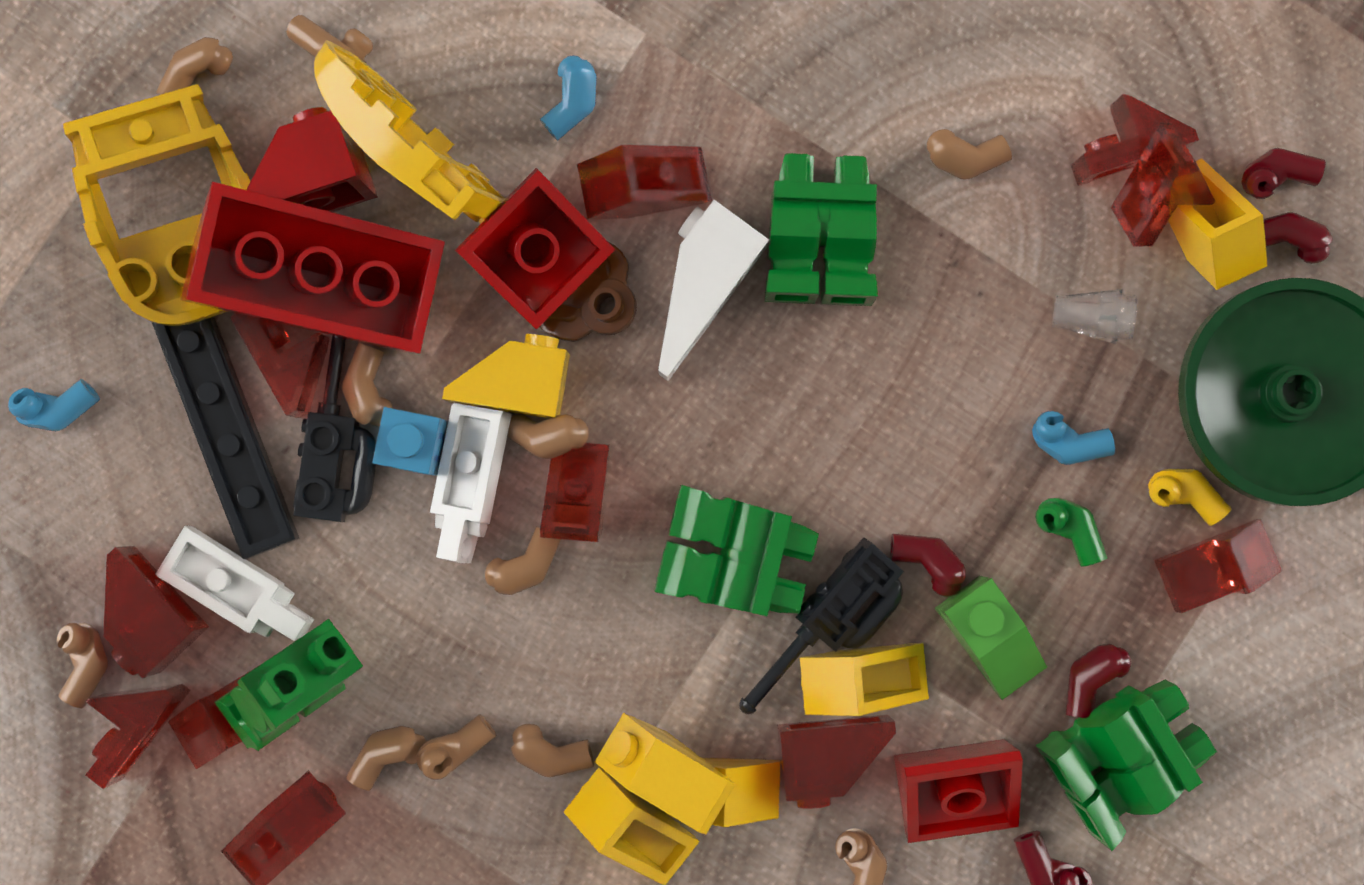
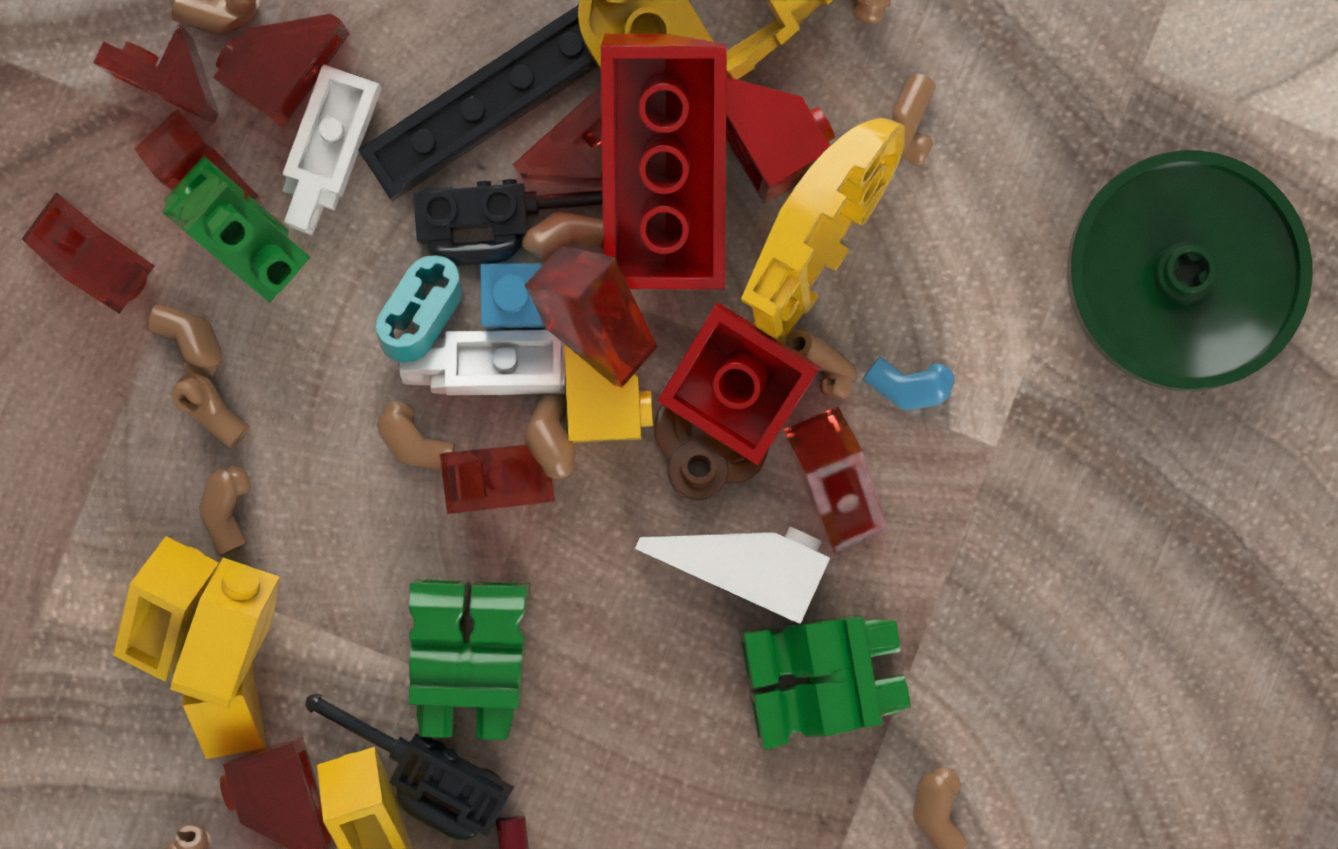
camera: 75 degrees right, 0 degrees up
(395, 539) = (410, 303): none -> teal beam
(438, 367) = (592, 312): none -> clear red slope
(546, 159) = (837, 370): none -> medium nougat arm

